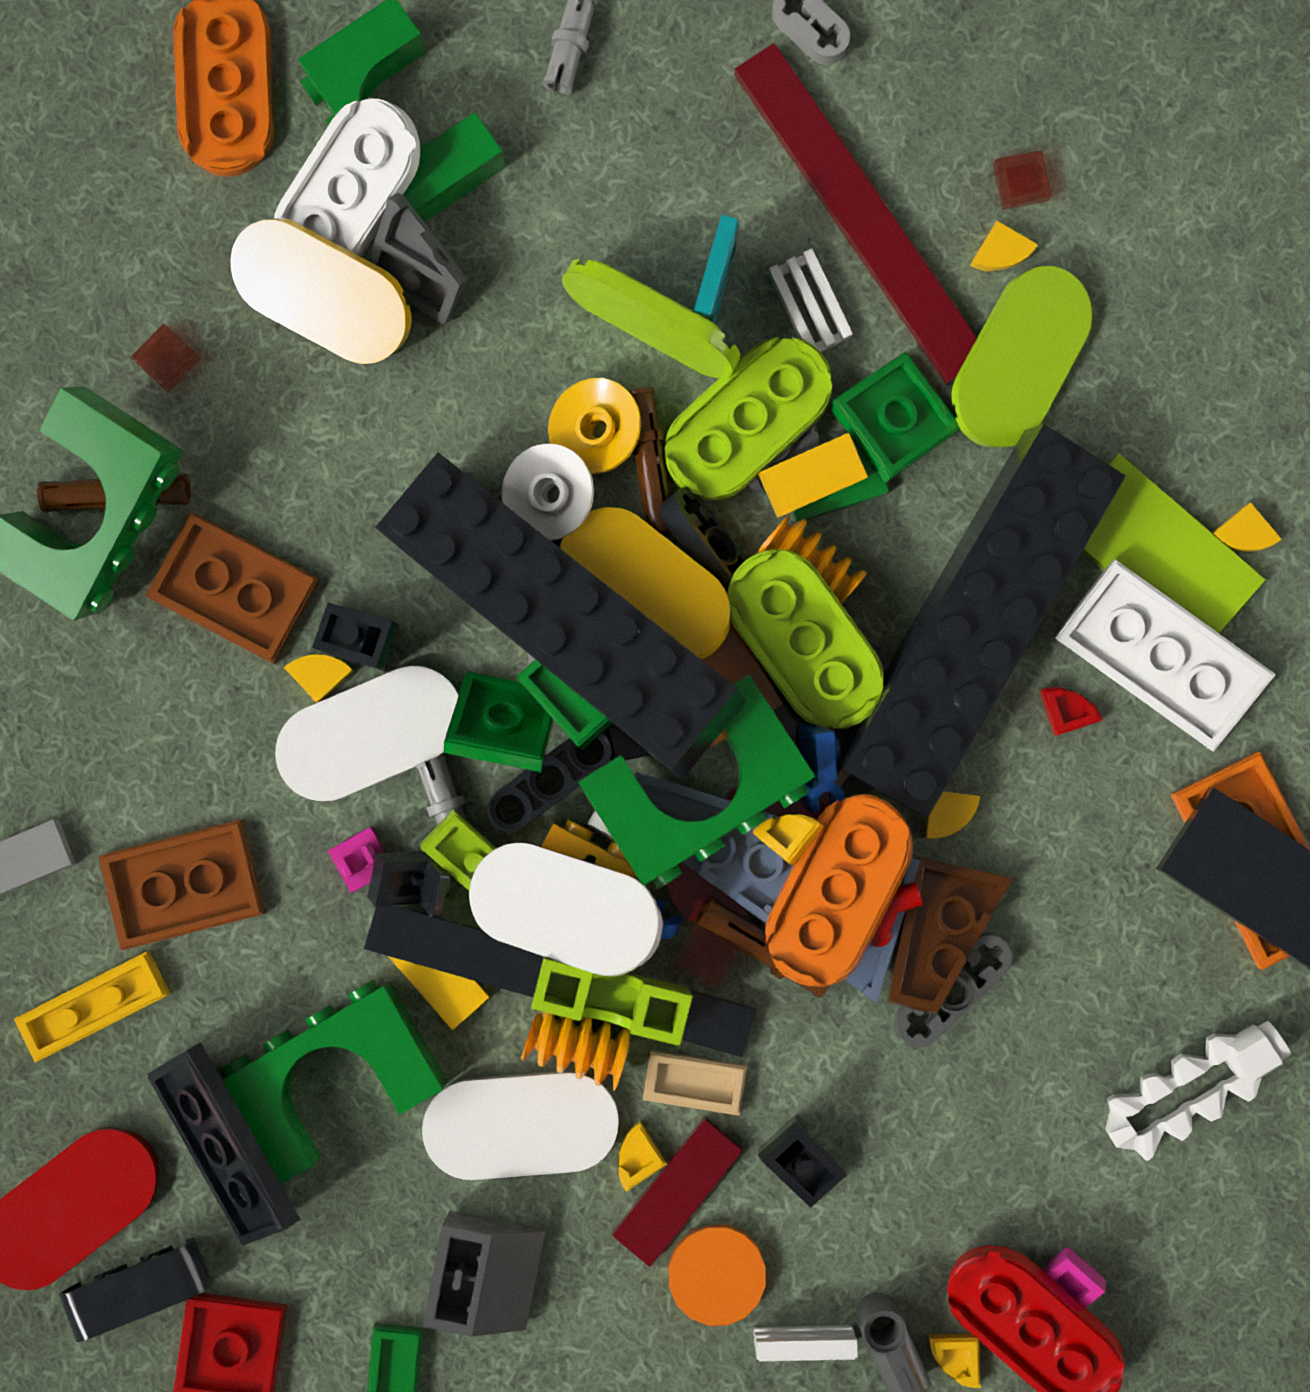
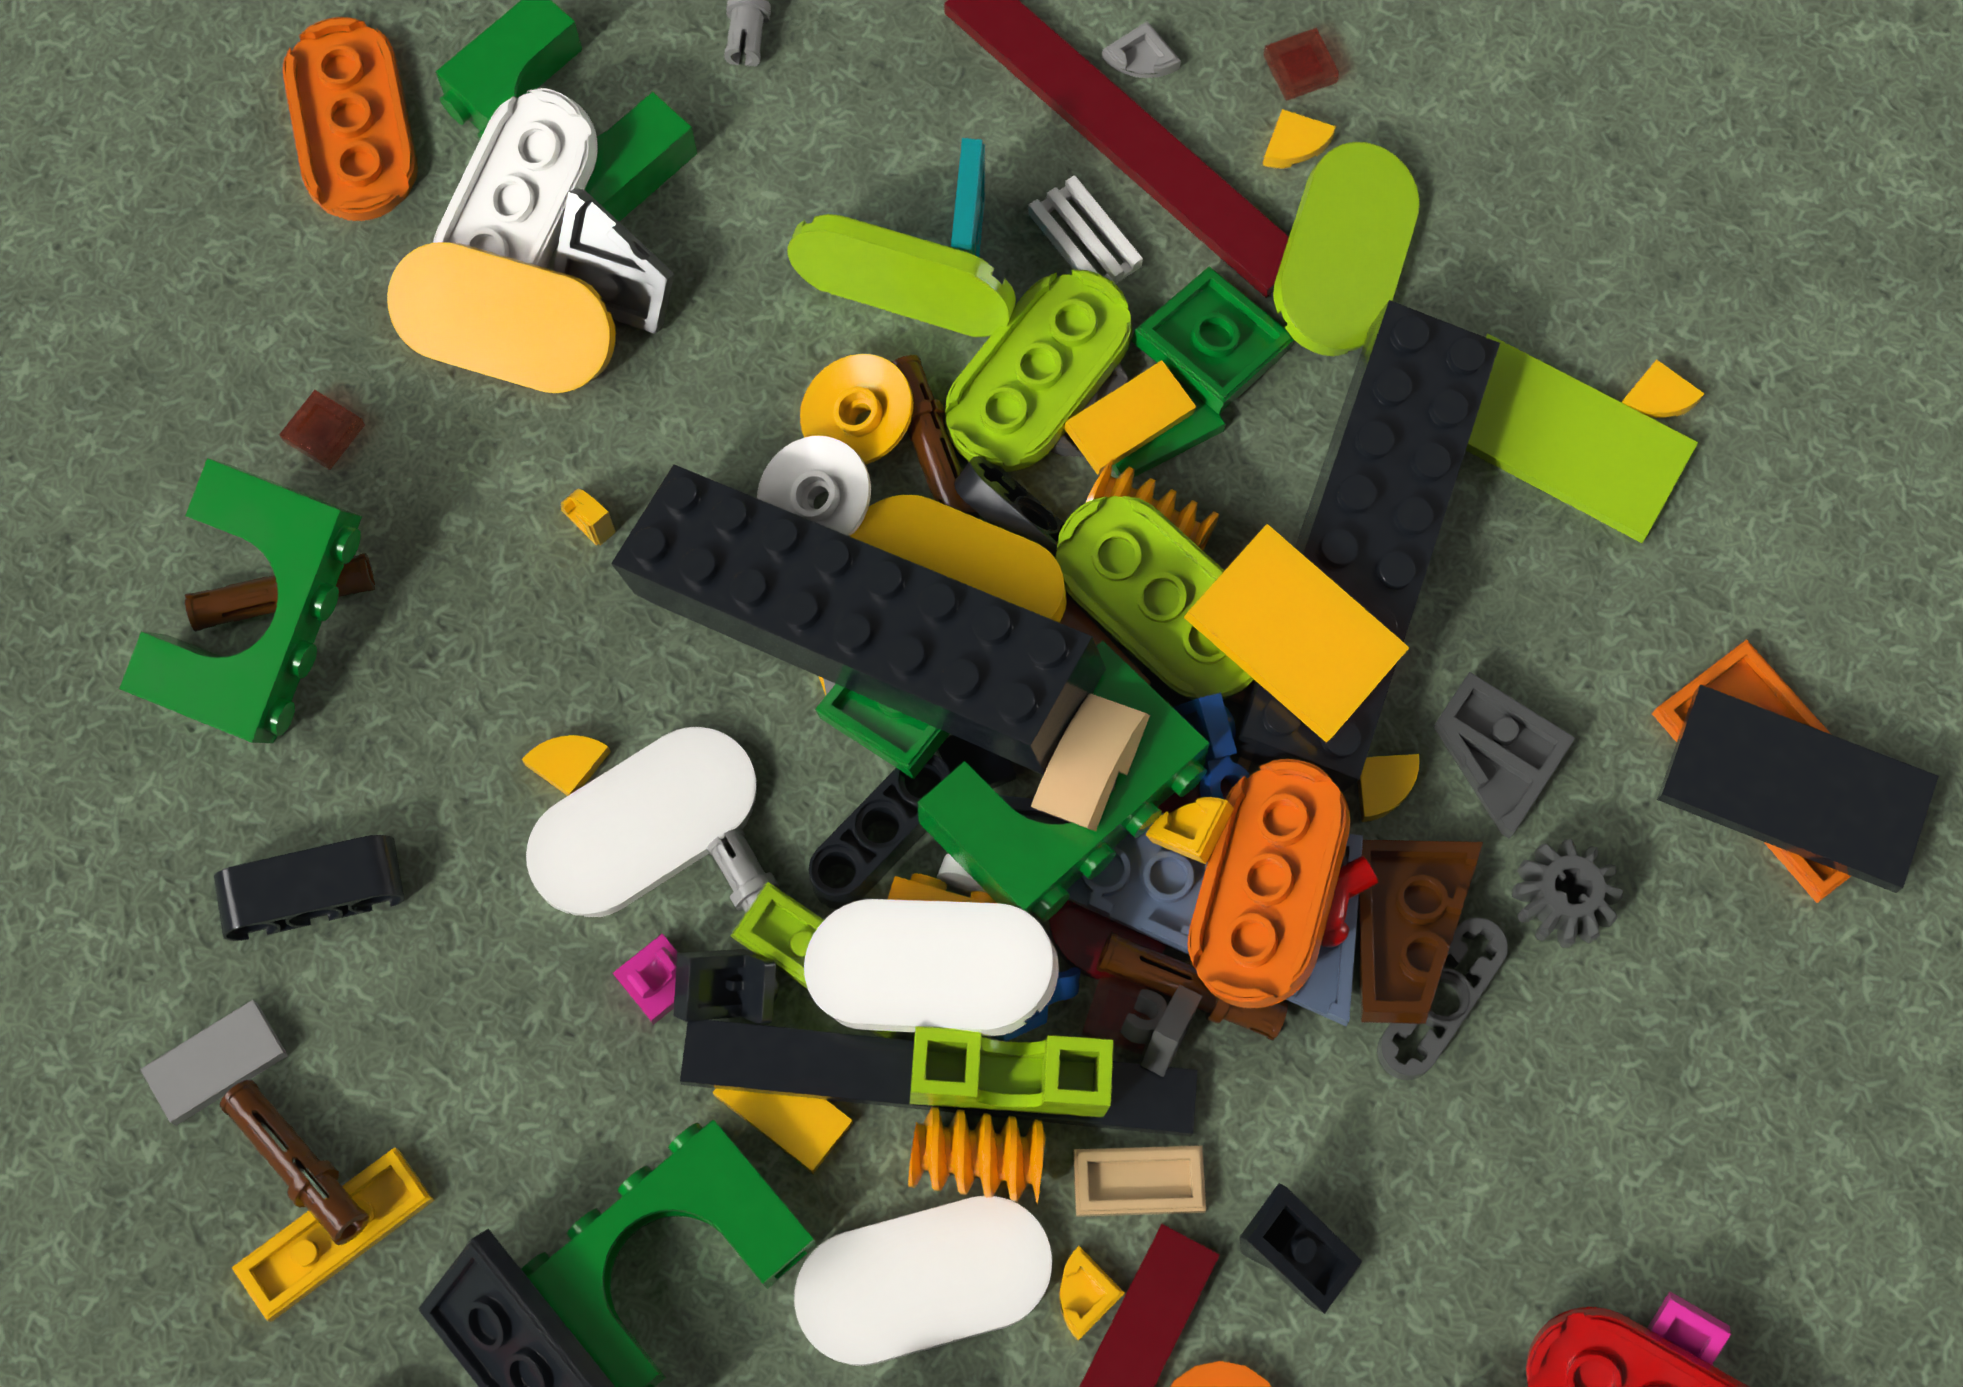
camera: 10 degrees left, 15 degrees down
(94, 1001) = (338, 1212): none -> reddish brown pin
(106, 739) = (308, 884): none -> black beam
(181, 884) = (429, 1055): dark orange tile -> none
(232, 587) = (443, 679): dark orange tile -> none
(356, 636) = (610, 702): black slope -> none
(365, 474) = (588, 516): none -> yellow tile
(498, 723) = (805, 769): green tile -> none
(717, 778) = (1088, 759): none -> tan slope
(738, 980) = (1165, 1028): none -> dark grey tile
(891, 145) = (1142, 53): none -> light grey tile
(903, 698) = (1296, 633): none -> yellow tile
(1045, 805) = (1500, 749): none -> dark grey wing
(1054, 943) = (1552, 906): none -> dark grey gear
(1068, 710) = (1501, 636): red tile -> none
(1164, 655) = (1601, 548): white tile -> none
(1247, 1054) = (1829, 1008): white sword -> none

